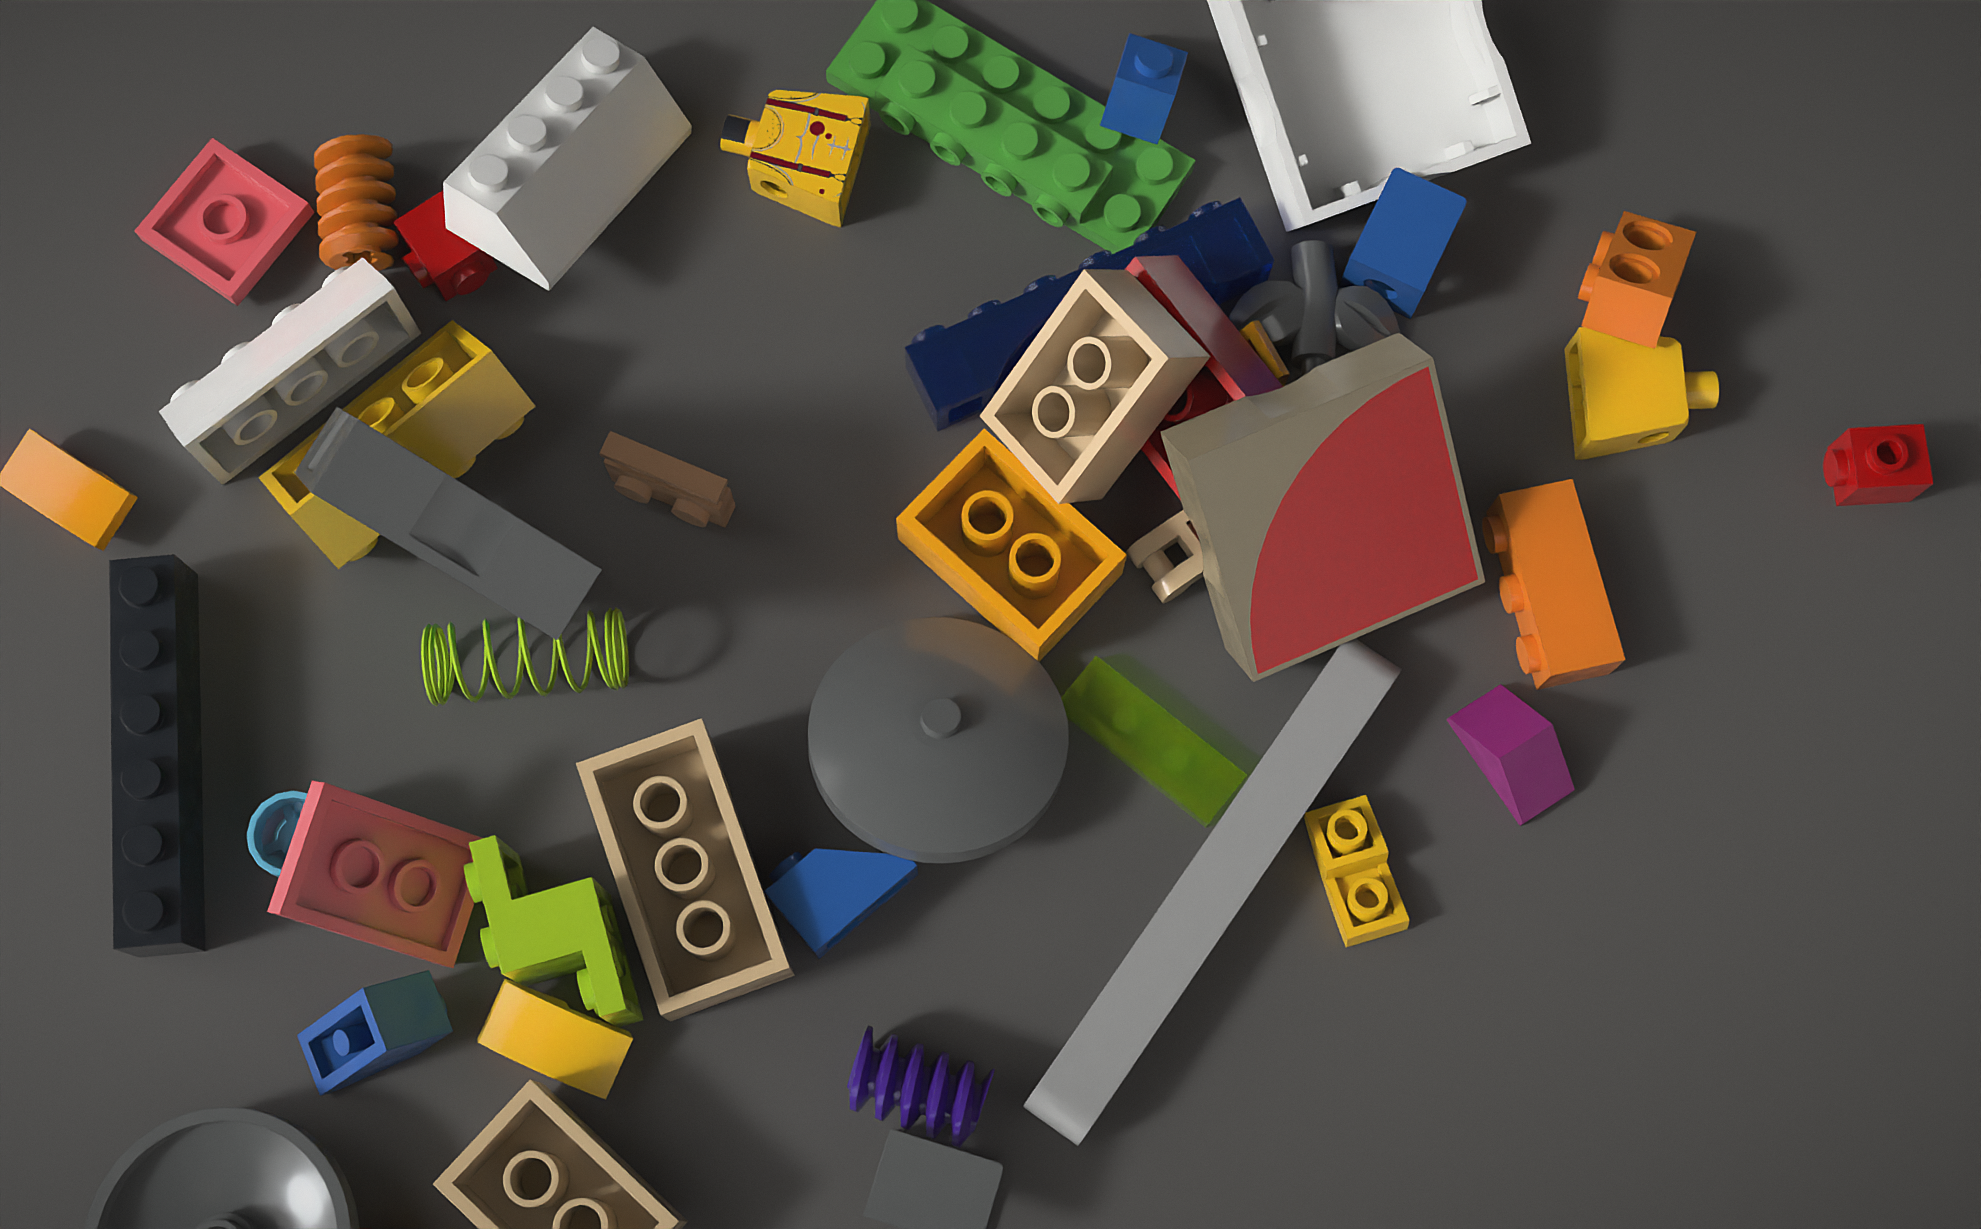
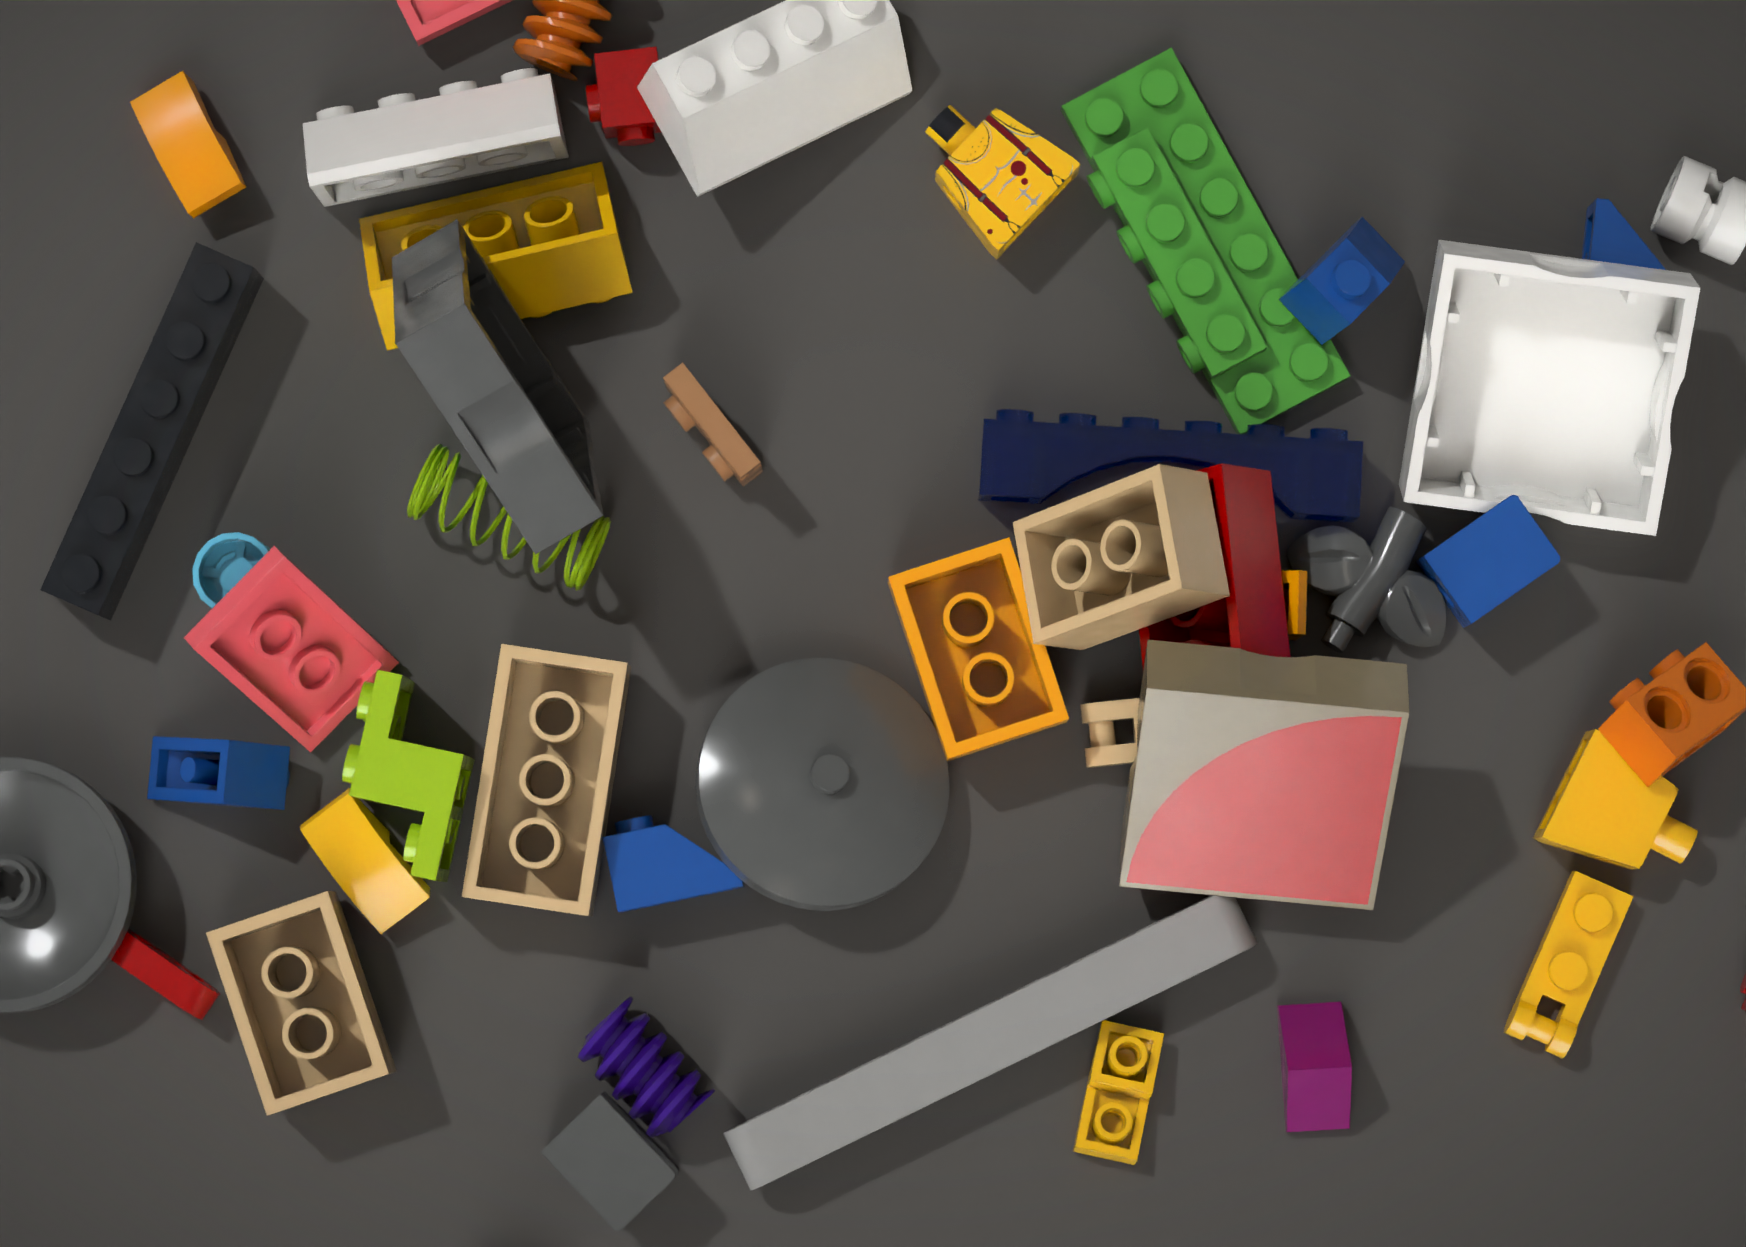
camera: 30 degrees right, 10 degrees up
(1151, 741) = (1007, 883): clear neon green tile -> none
(1552, 585) = (1435, 941): orange brick -> none
(1672, 544) = (1568, 962): none -> yellow plate

